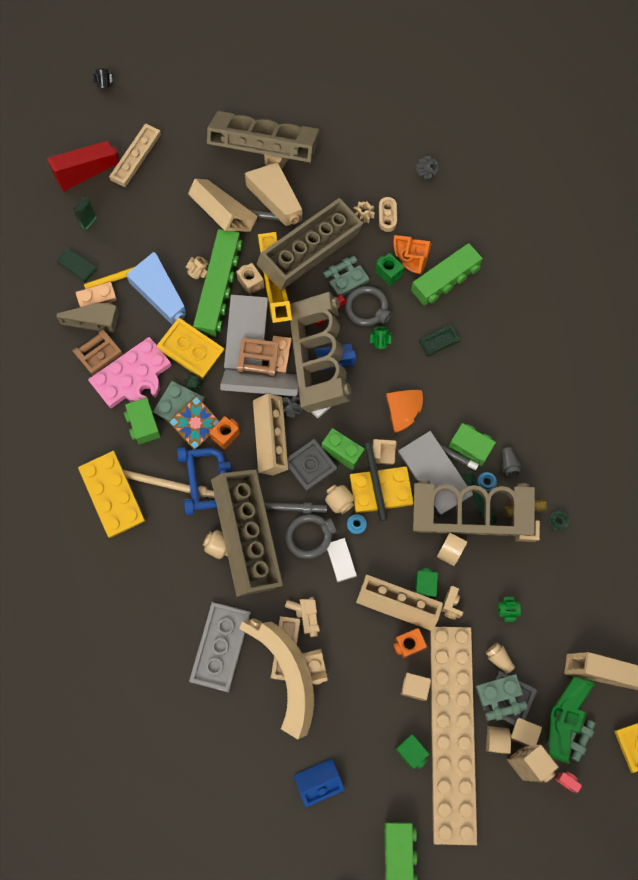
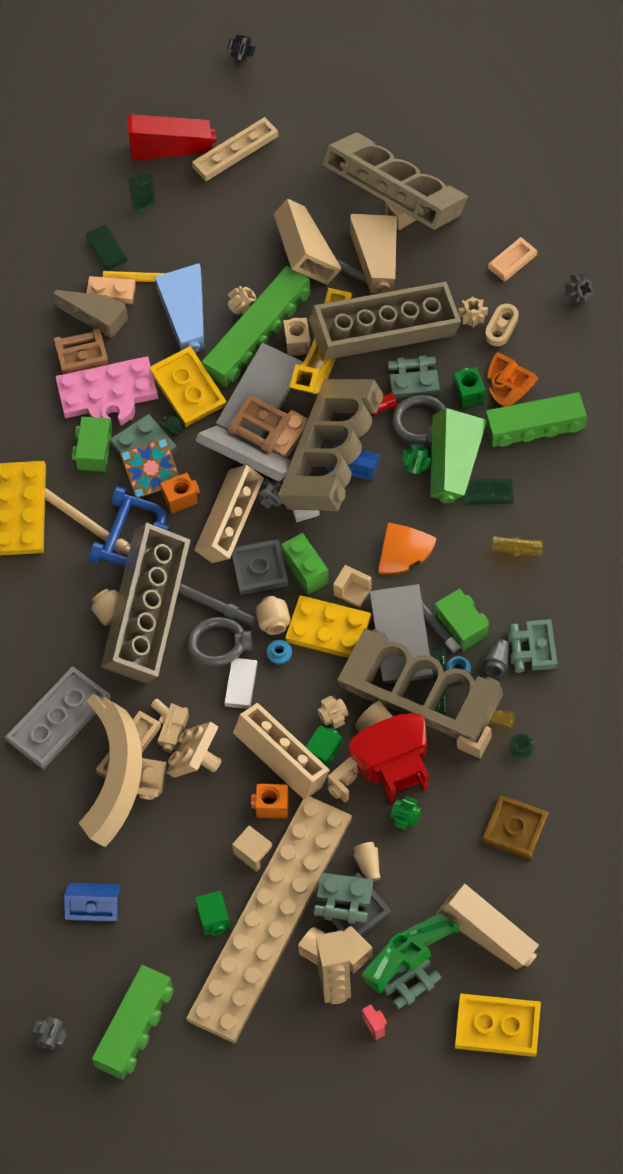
camera: 30 degrees right, 10 degrees down
(337, 631) = (193, 751): none -> tan plate
(369, 163) = (512, 259): none -> light nougat tile
(375, 481) = (323, 611): pearl dark grey bar -> none
(406, 323) = (454, 451): none -> slope
(419, 555) = (332, 712): none -> tan gear
(481, 372) = (518, 545): none -> clear yellow pin
(481, 569) = (395, 751): none -> red piece
(533, 438) = (541, 646): none -> sand green plate
(585, 583) = (515, 827): none -> pearl gold tile

